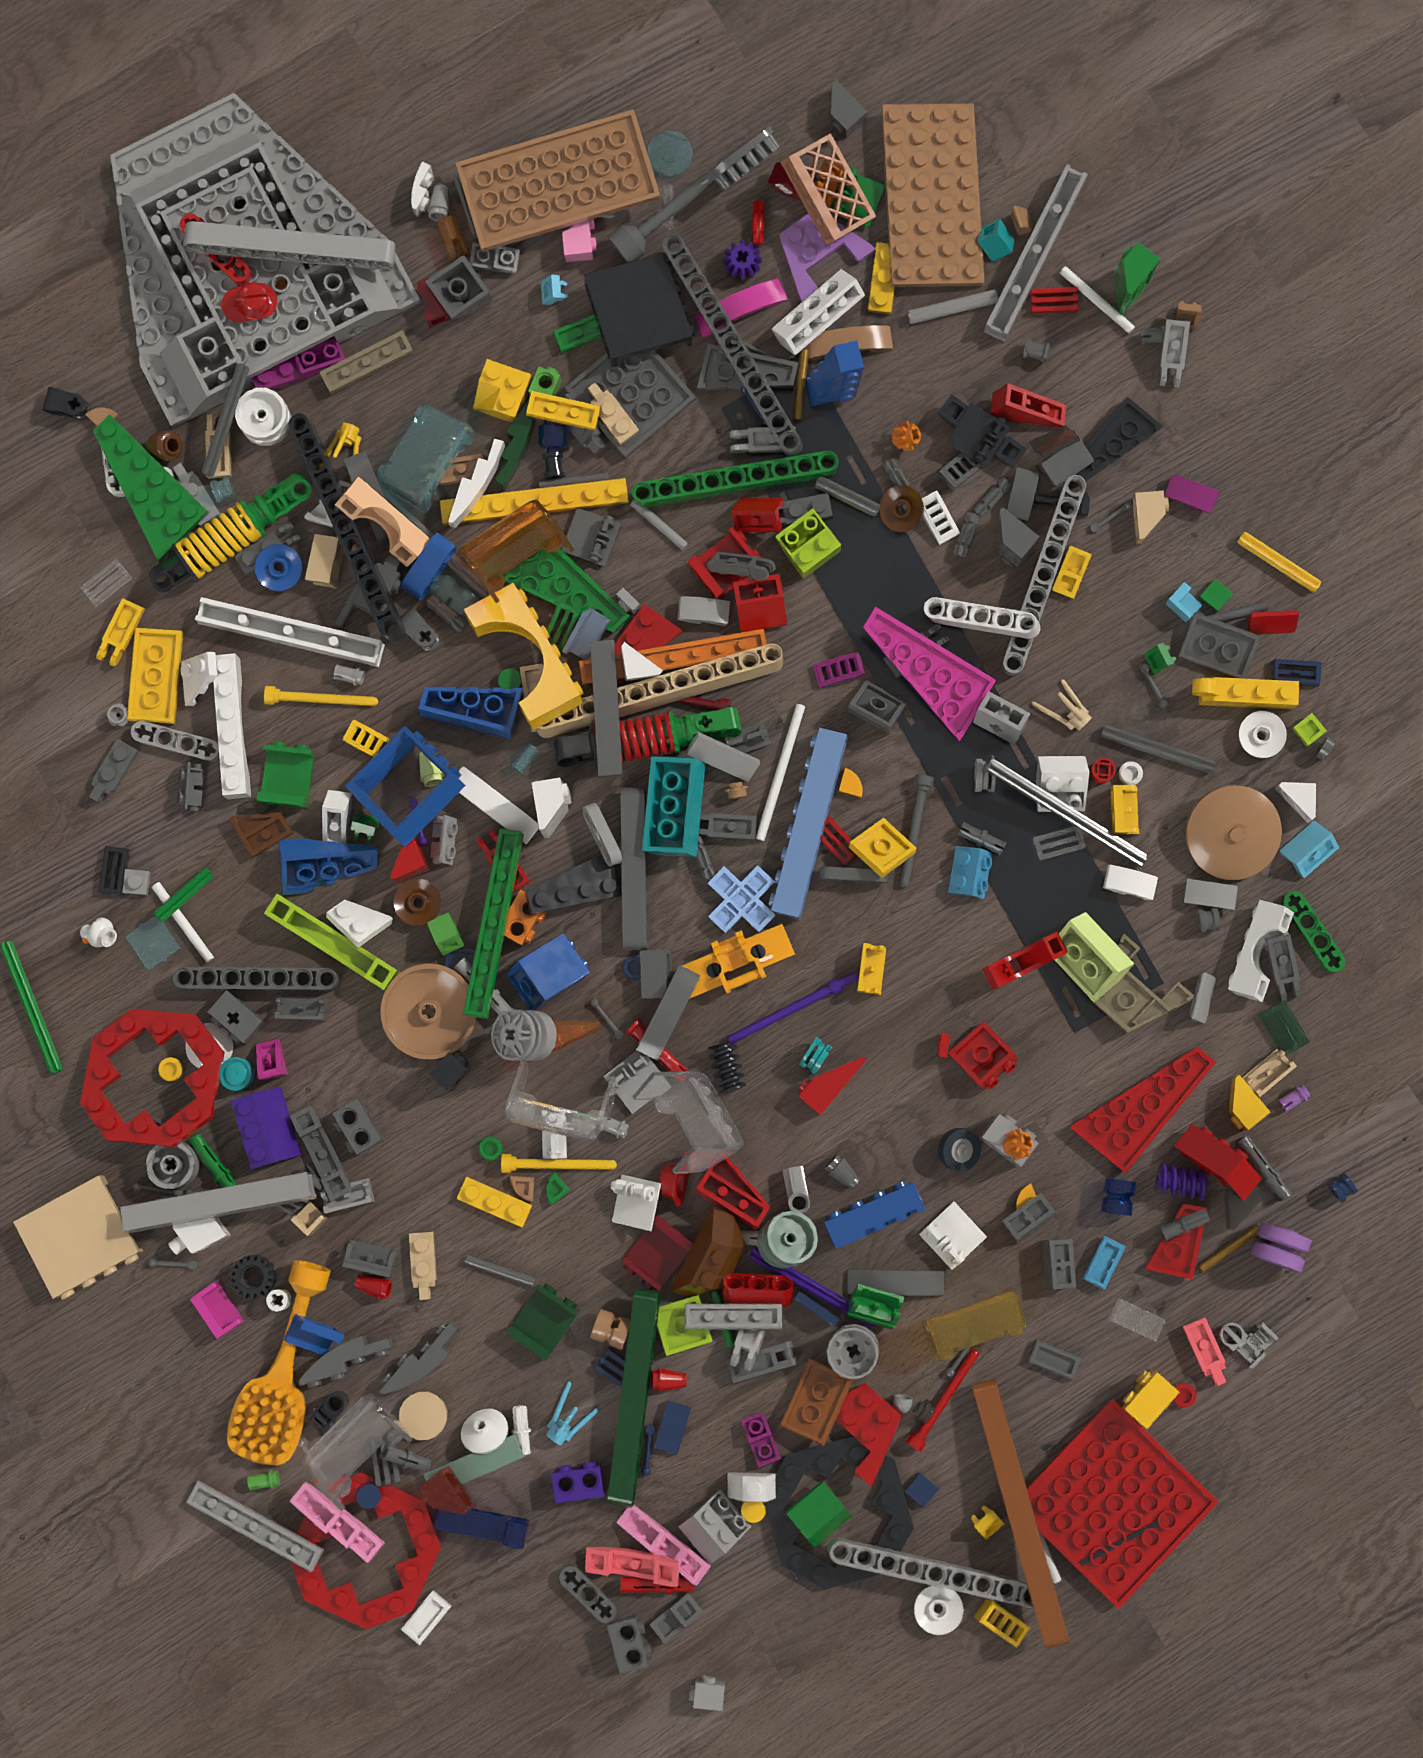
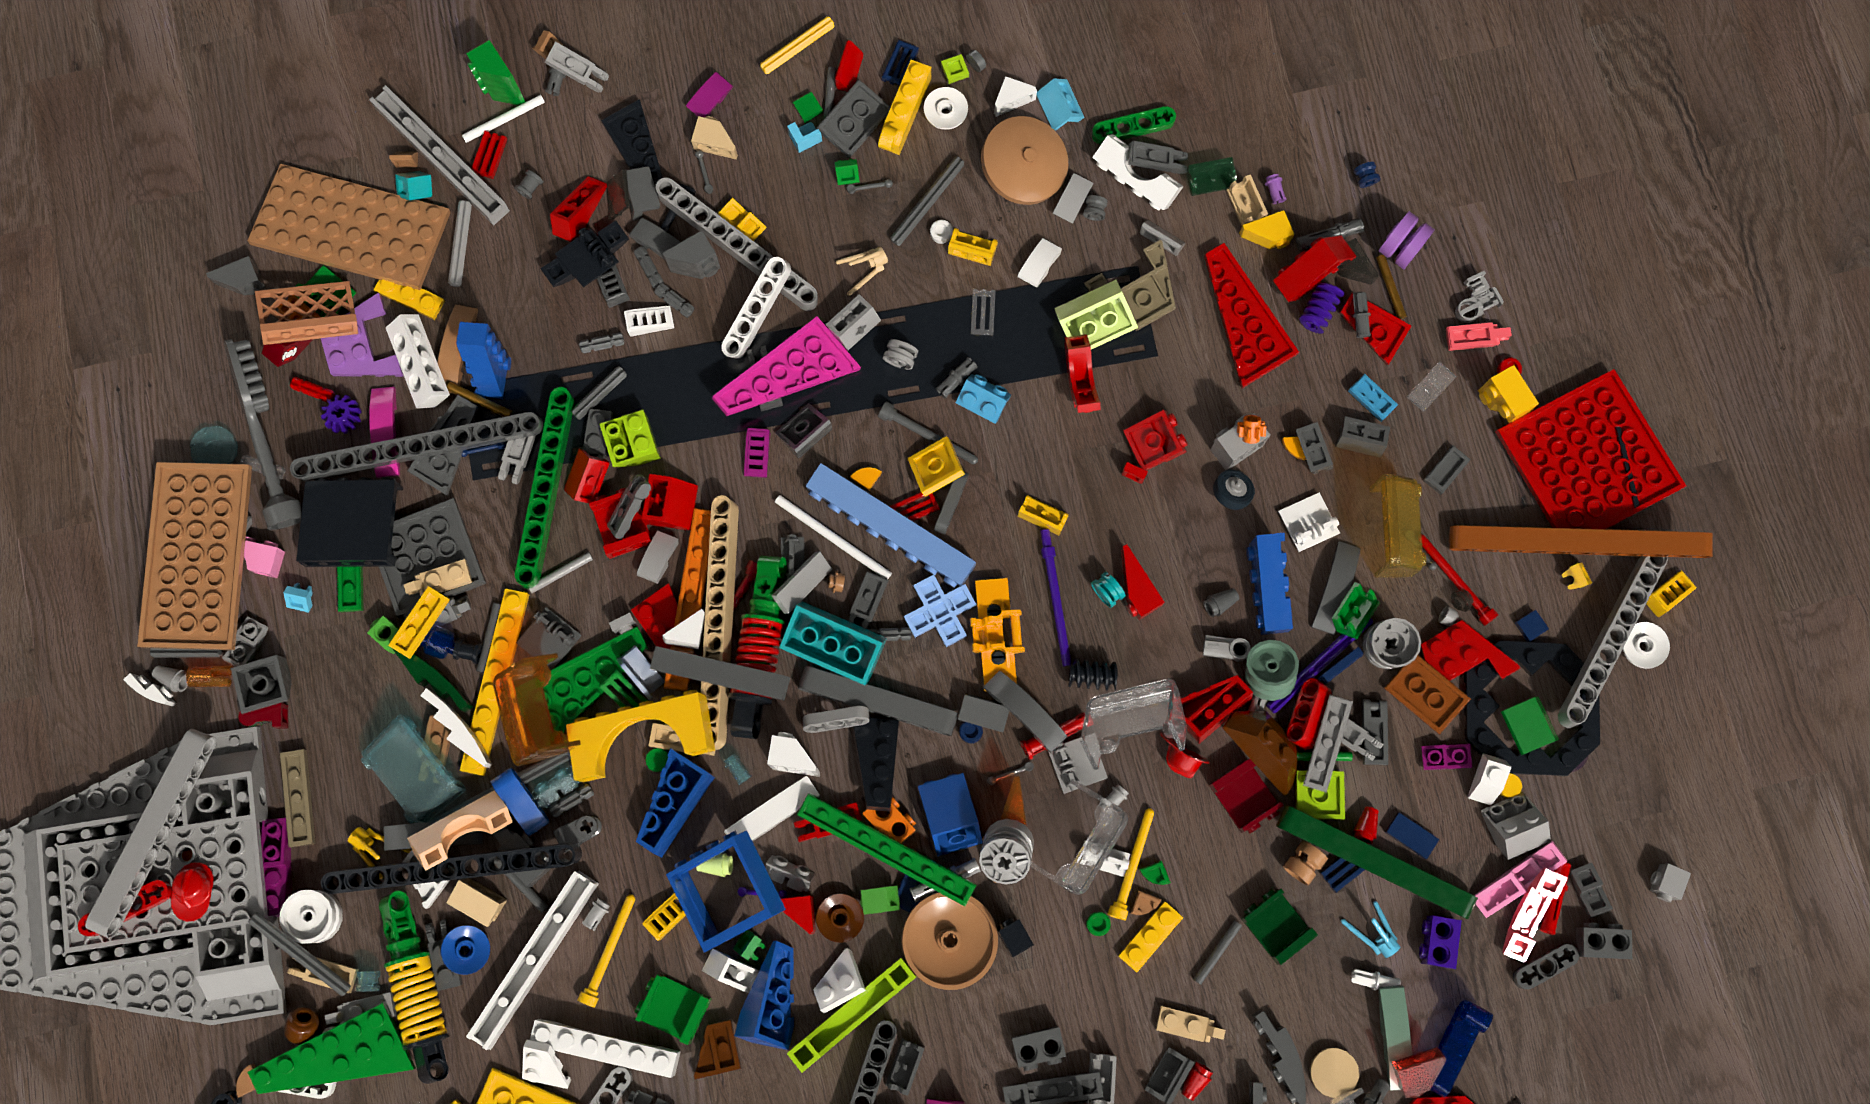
camera: 80 degrees left, 5 degrees down
(486, 1439) = (1377, 1016): white dish -> none
(502, 391) = (377, 676): yellow slope -> none
(635, 1202) = (1192, 800): white hinge -> none
(650, 1429) = (1409, 858): dark blue hinge -> none
(891, 508) = (626, 358): reddish brown dish -> none
(906, 436) = (563, 322): orange gear -> none
(1063, 778) = (930, 291): white slope -> none
(1064, 811) = (956, 296): axle -> none
(1102, 774) = (931, 258): red wheel -> none
(1118, 1196) = (1319, 365): clear blue wheel -> none

